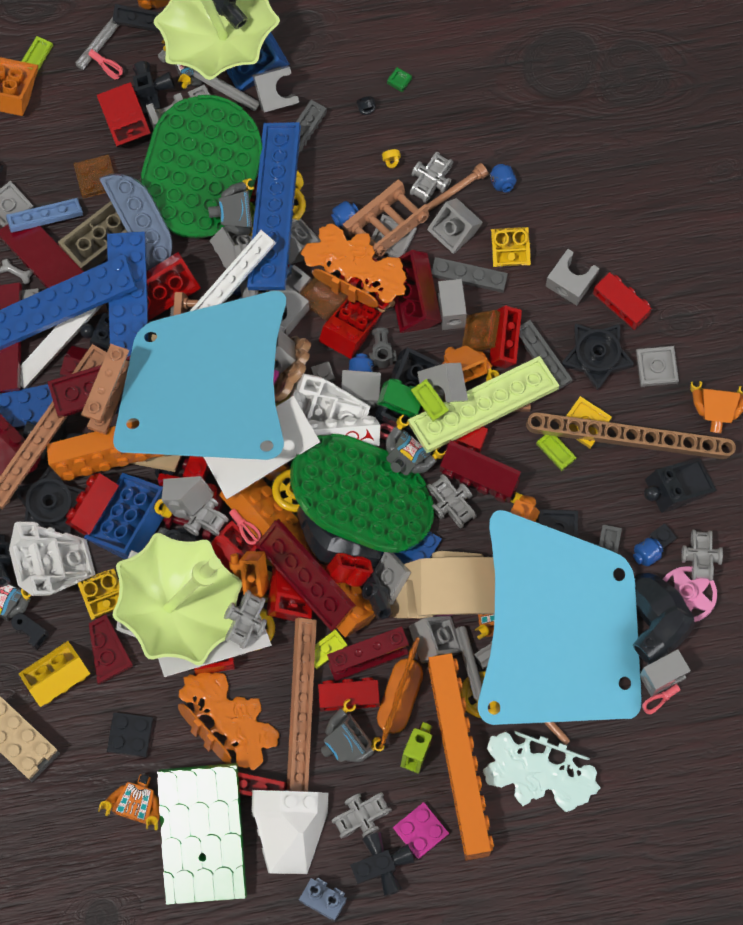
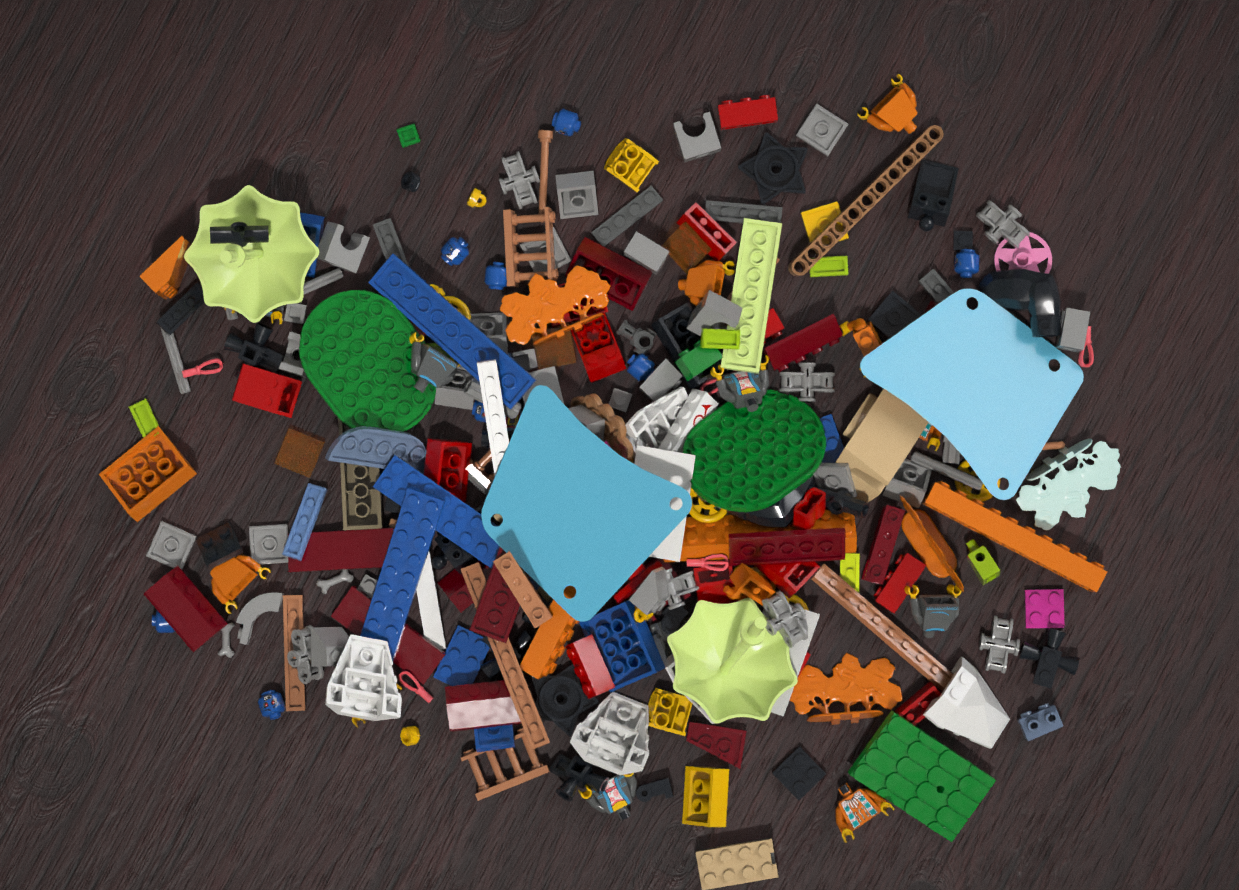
camera: 55 degrees left, 15 degrees up
(338, 171) = (454, 251): none -> blue head

